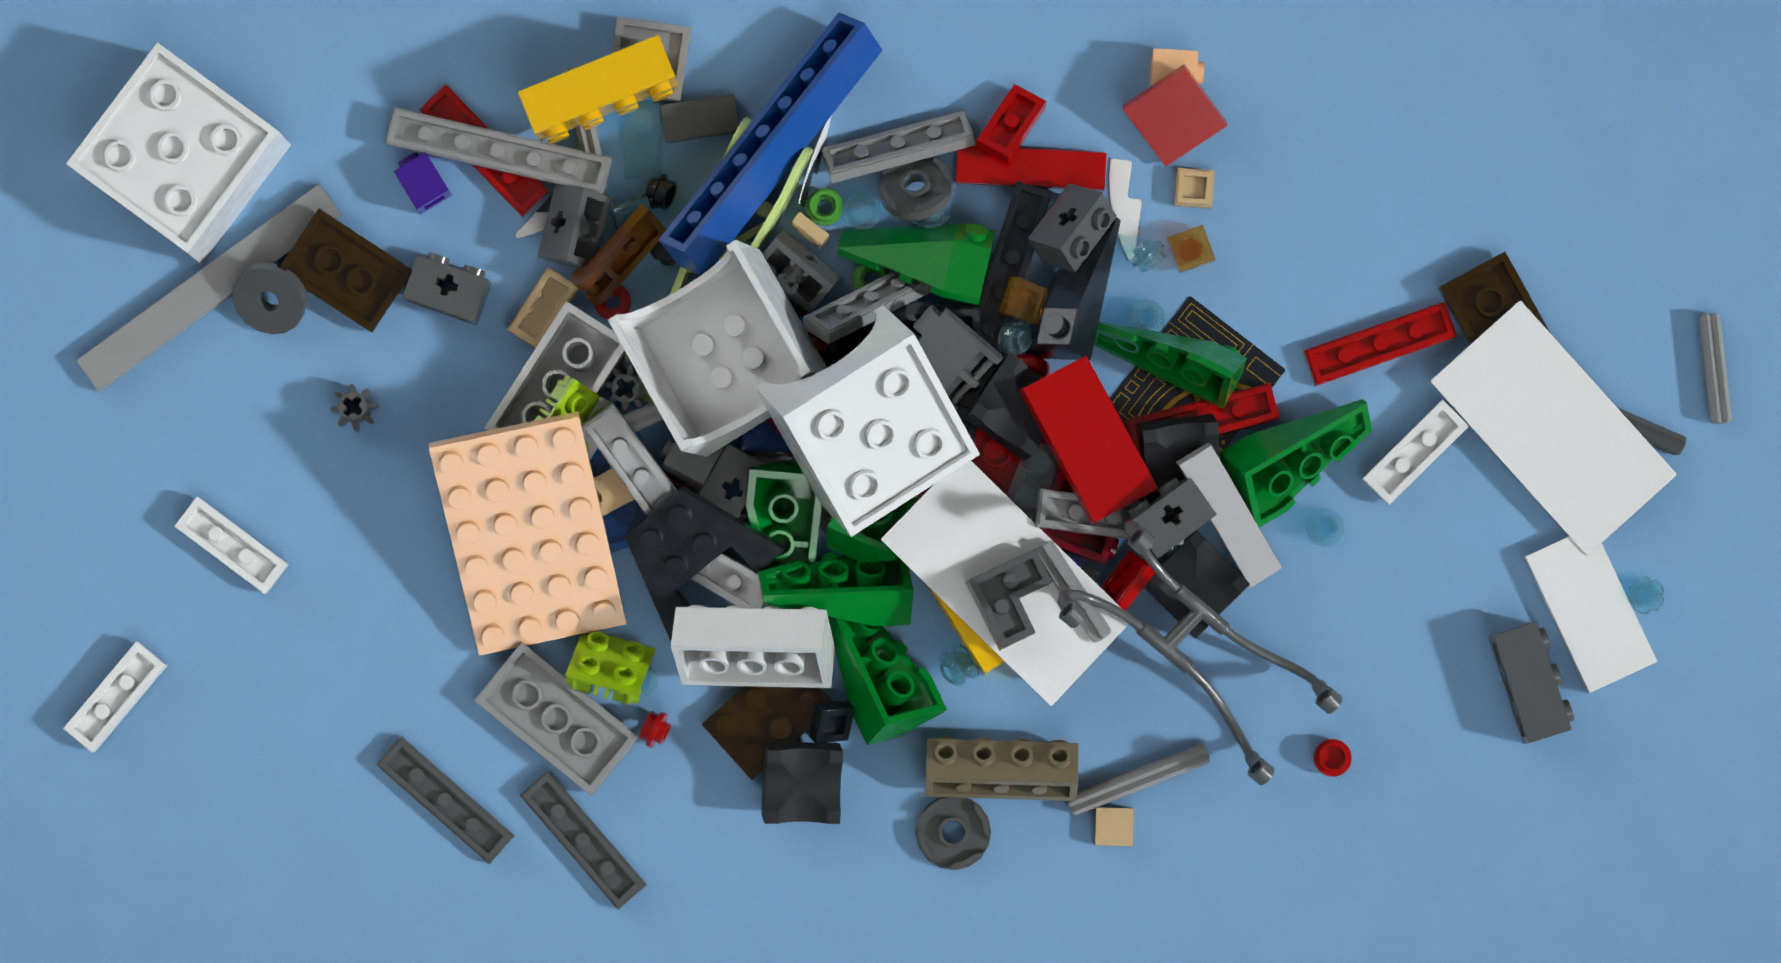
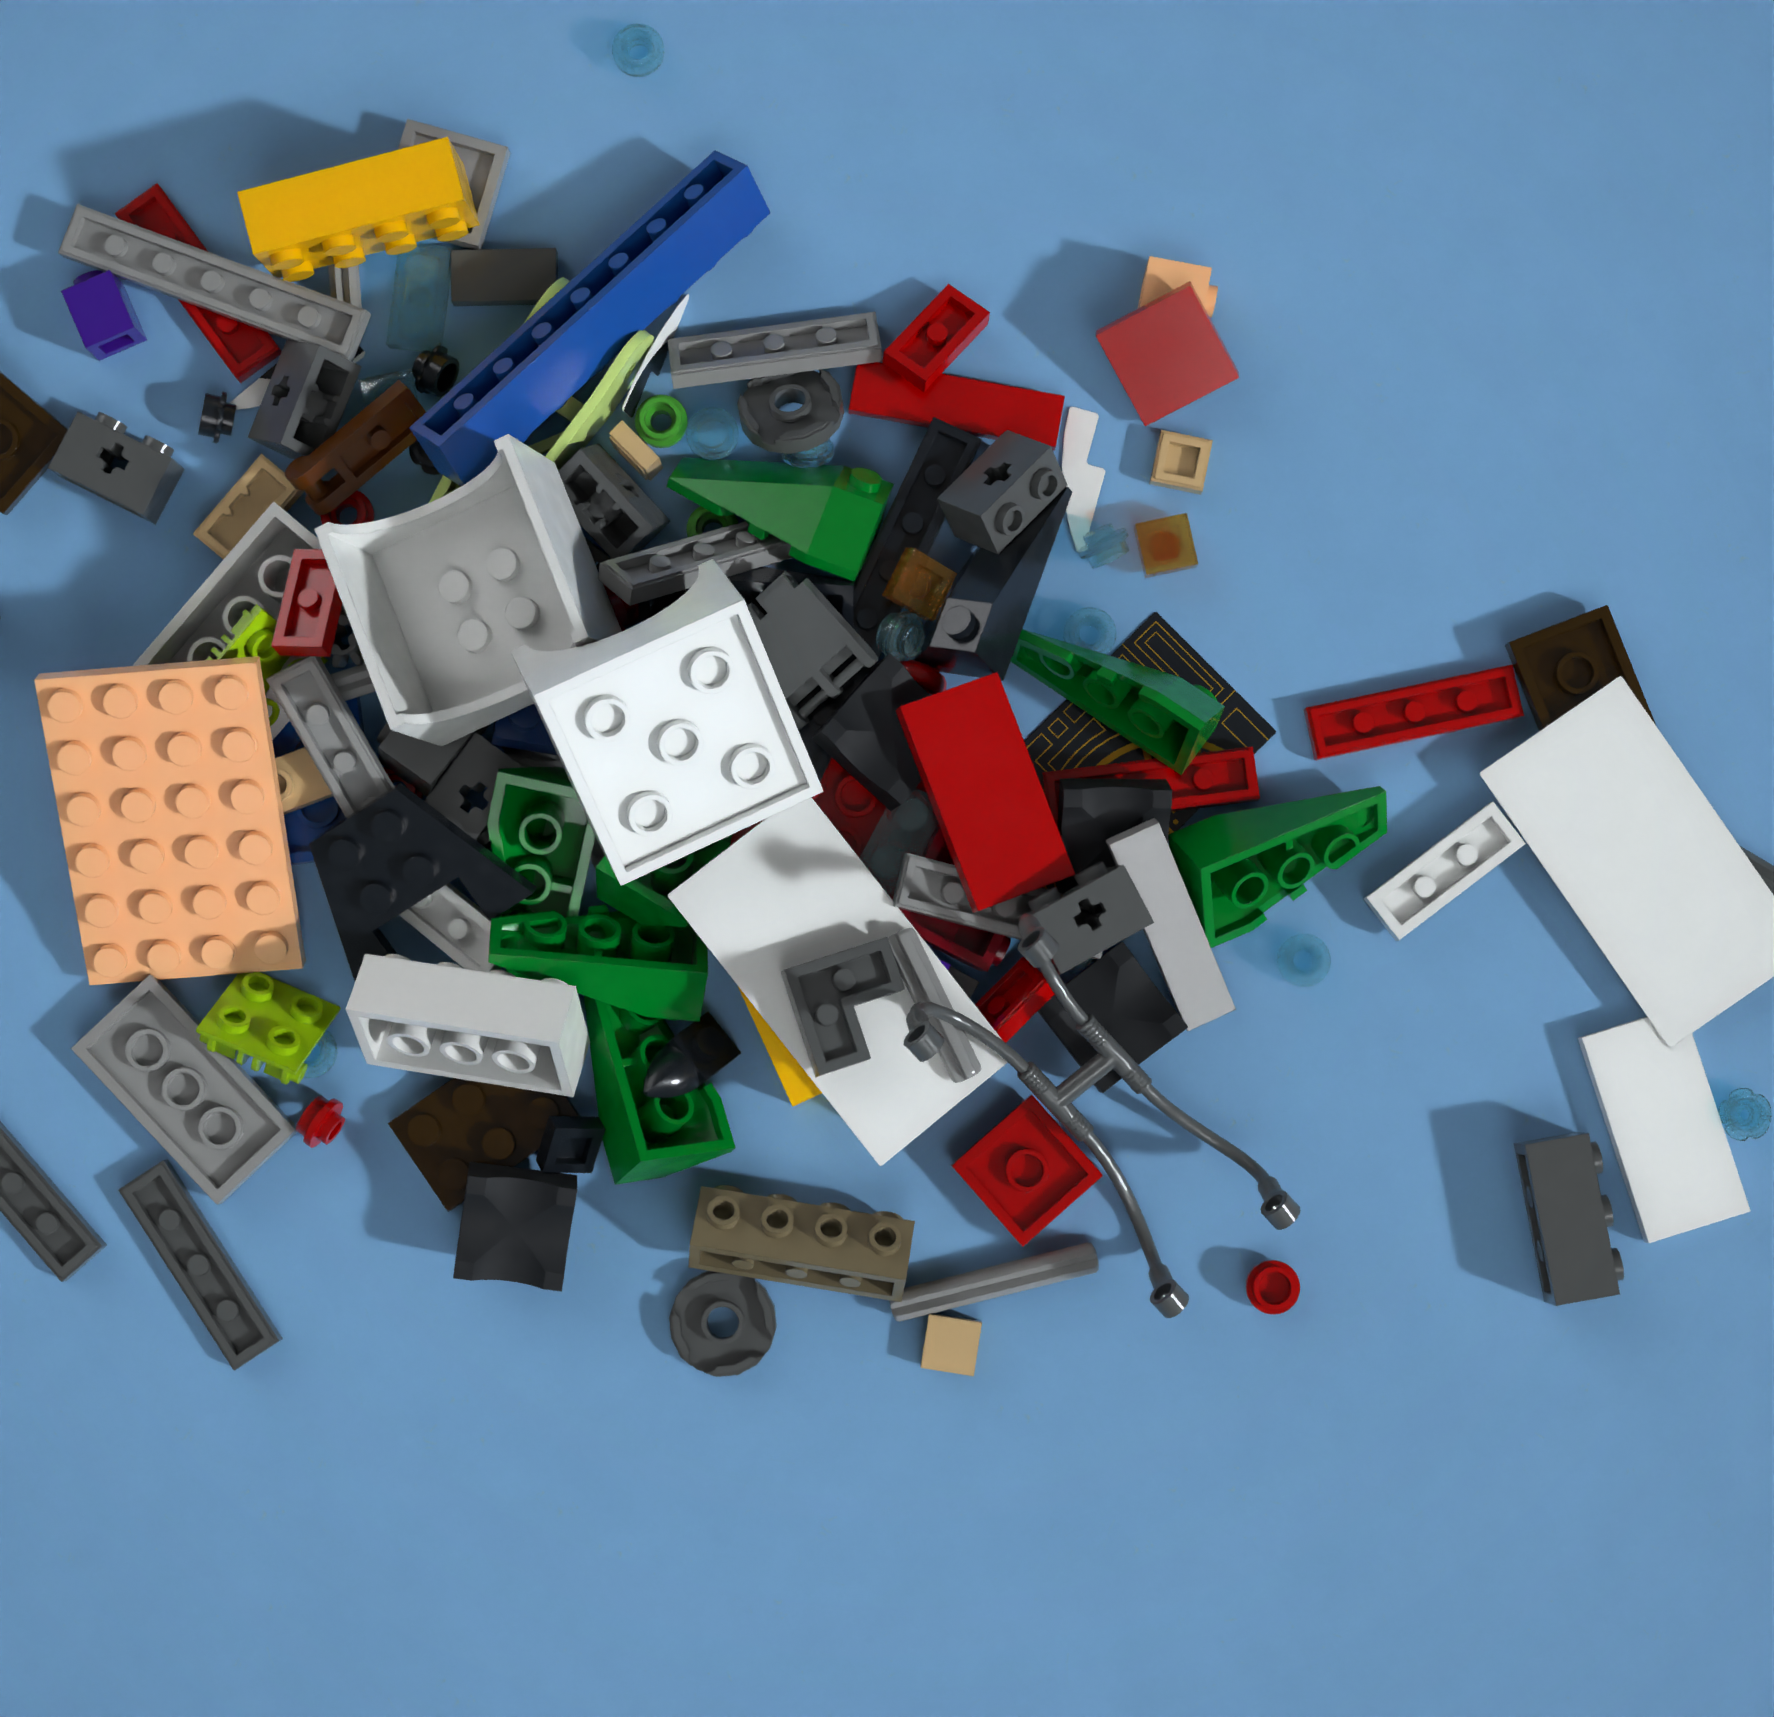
camera: 10 degrees right, 0 degrees up
(511, 244) = (216, 416): none -> black plate
(605, 371) = (308, 607): none -> plate
(906, 652) = (689, 1059): none -> black plate
(958, 666) = (760, 1088): clear light blue plate -> none
(1151, 698) = (1027, 1170): none -> red plate

